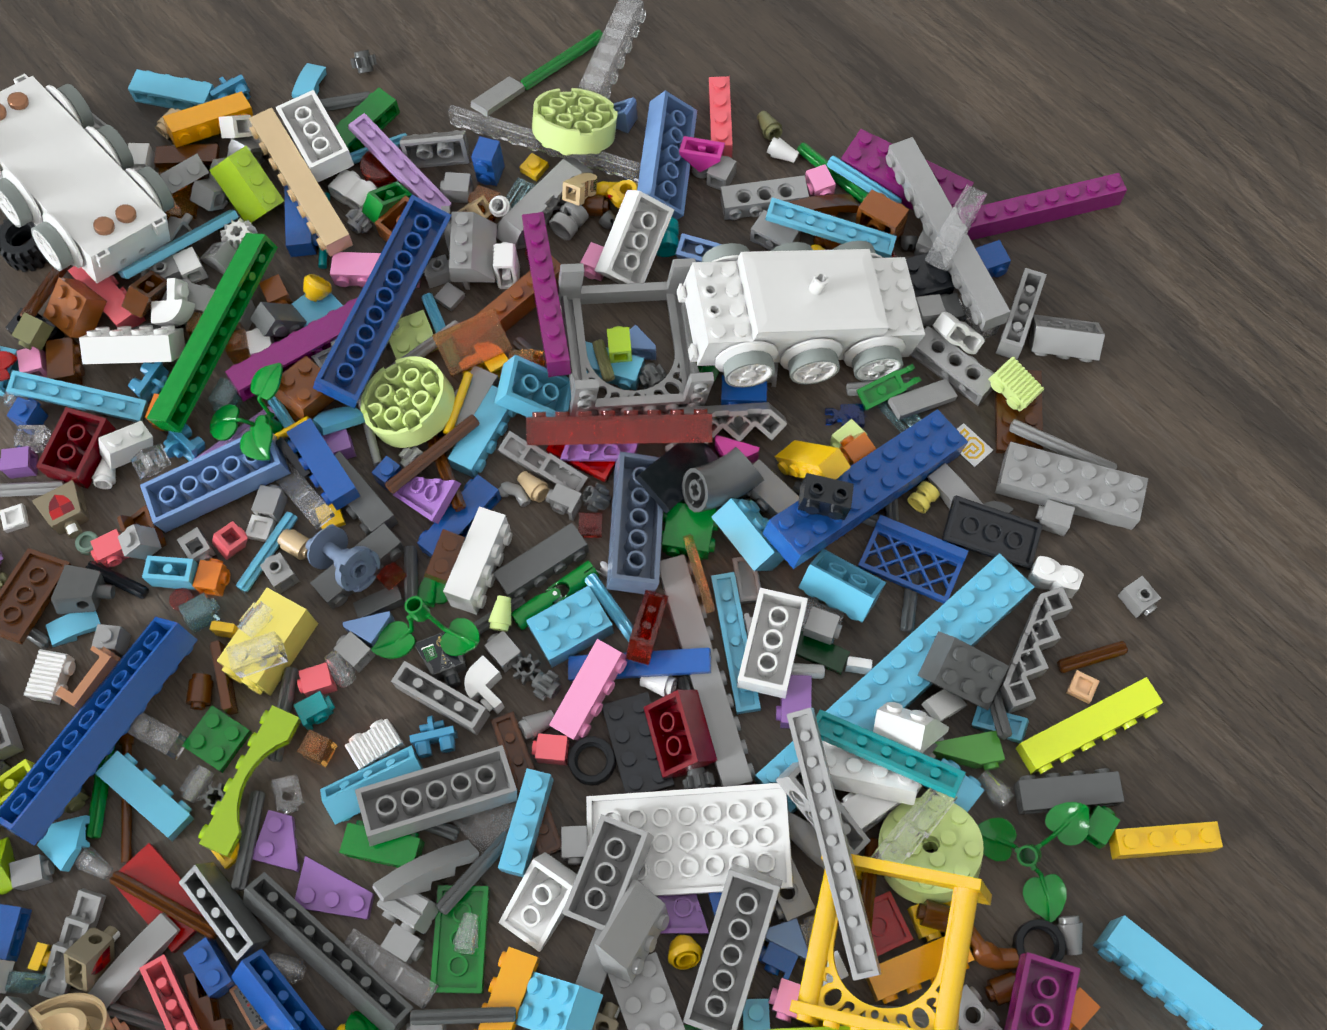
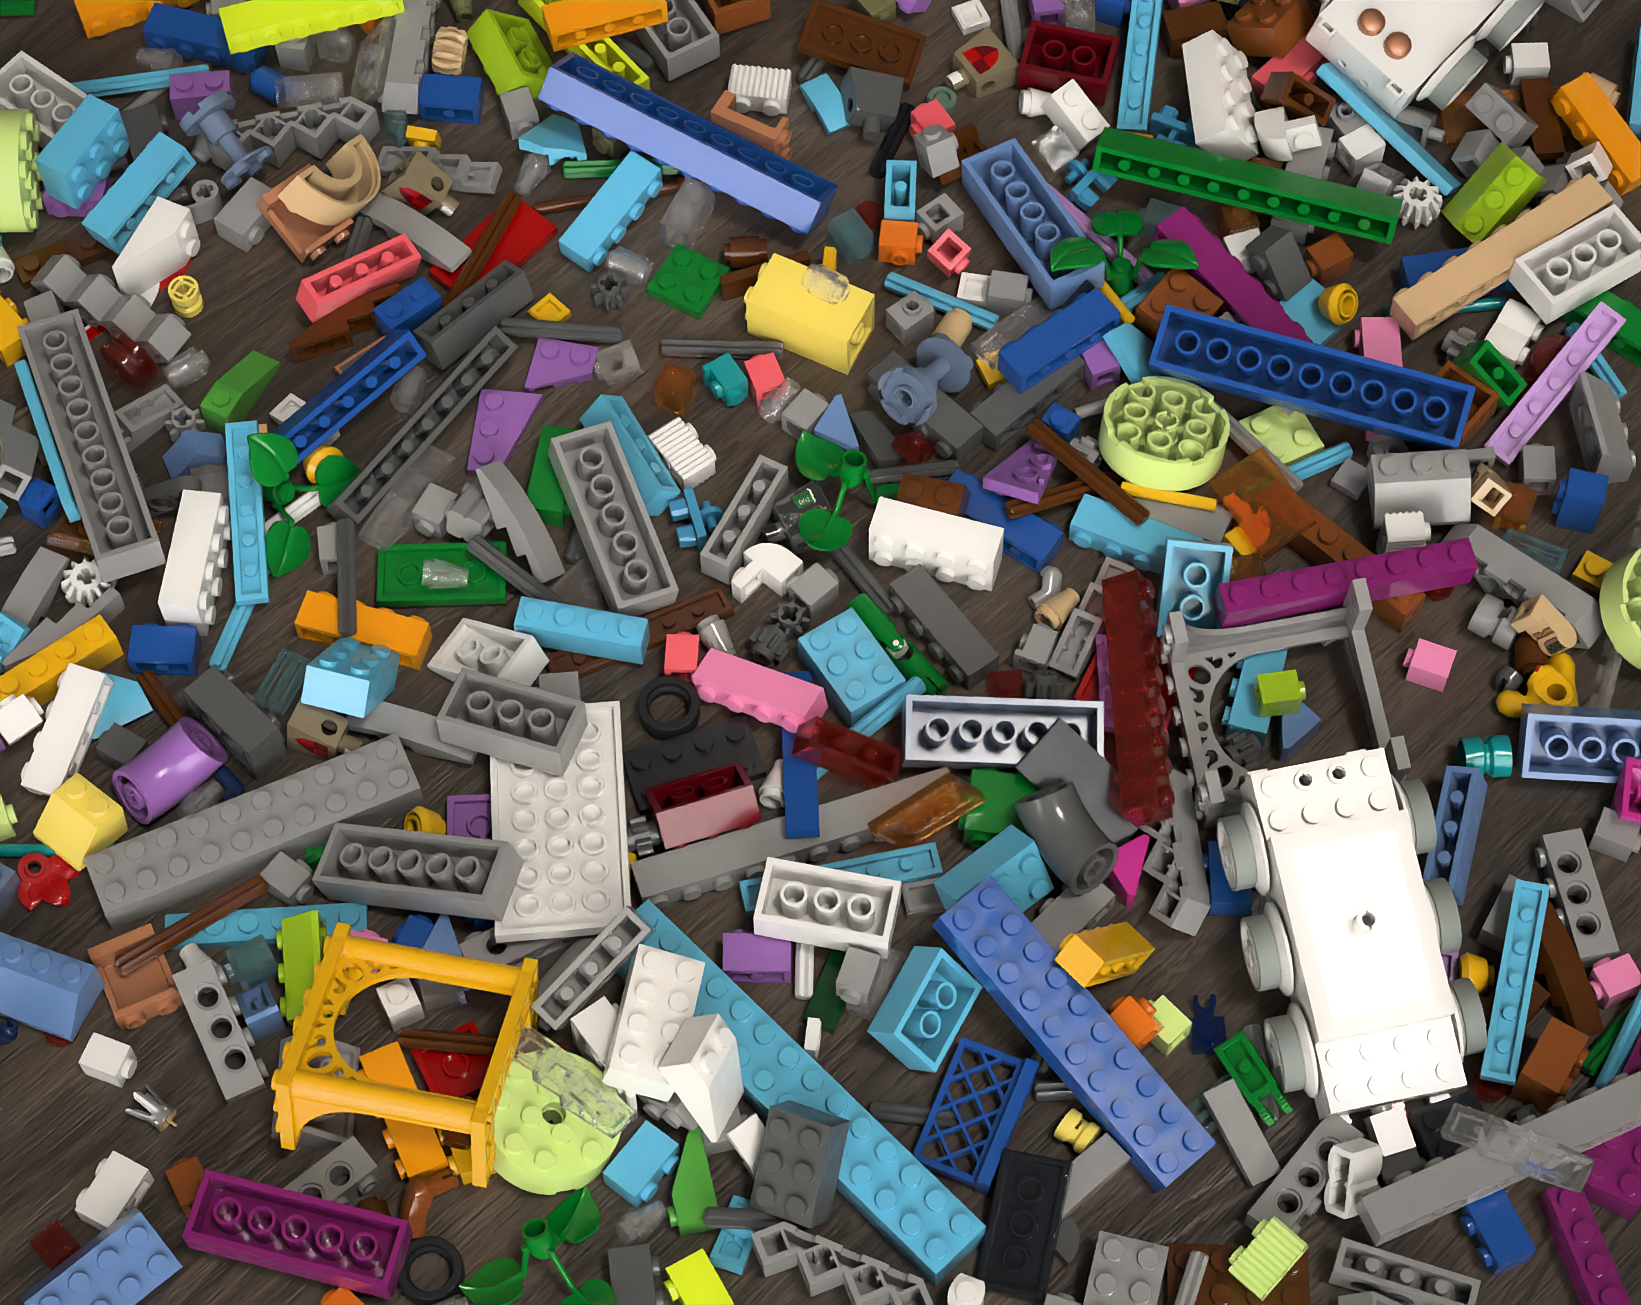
camera: 85 degrees right, 5 degrees down
(113, 638) = (808, 145): light grey brick -> none
(225, 829) = (571, 298): lime arch -> none
(256, 654) = (778, 290): clear brick -> none
(499, 206) = (1499, 521): white cone -> none
(501, 614) = (861, 579): yellowish green cone -> none
(603, 360) = (1246, 677): olive axle -> none
(631, 932) = (441, 750): light grey slope -> none
(634, 238) = (1456, 701): white brick -> none
(825, 496) = (1027, 946): black brick -> none
(834, 845) = (542, 961): light grey plate -> none
(890, 754) = (658, 1027): teal plate -> none
(976, 448) = (1175, 1207): white sticker -> none

